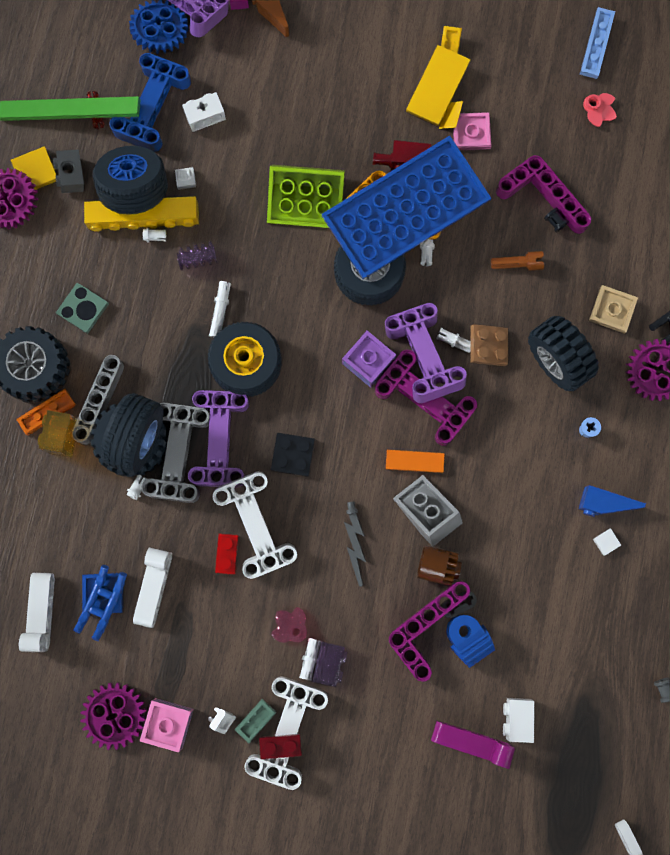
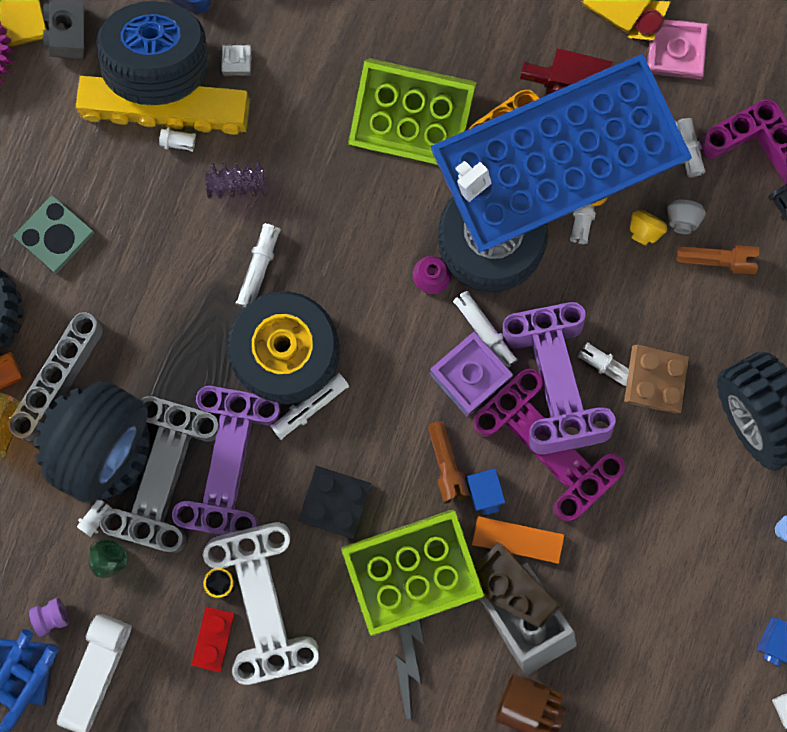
camera: 10 degrees right, 0 degrees up
(117, 555) = (48, 617): none -> medium lavender wheel
(149, 512) = (107, 558): none -> clear green cone
(223, 514) = (220, 583): none -> black wheel
(251, 411) = (282, 428): none -> white pin
(334, 299) = (431, 274): none -> magenta cone
(350, 491) = (412, 572): none -> lime slope
(352, 231) = (472, 180): none -> white tile
(366, 429) = (452, 481): none -> dark orange piece
(373, 328) = (485, 329): none -> white pin
(389, 433) = (485, 491): none -> blue brick
(414, 490) = (514, 588): none -> dark brown wing
(451, 116) = (649, 22): none -> dark red piece
(468, 248) = (646, 227): none -> yellow cone
(492, 237) = (685, 215): none -> light grey cone
(493, 204) = (694, 166): none -> white pin

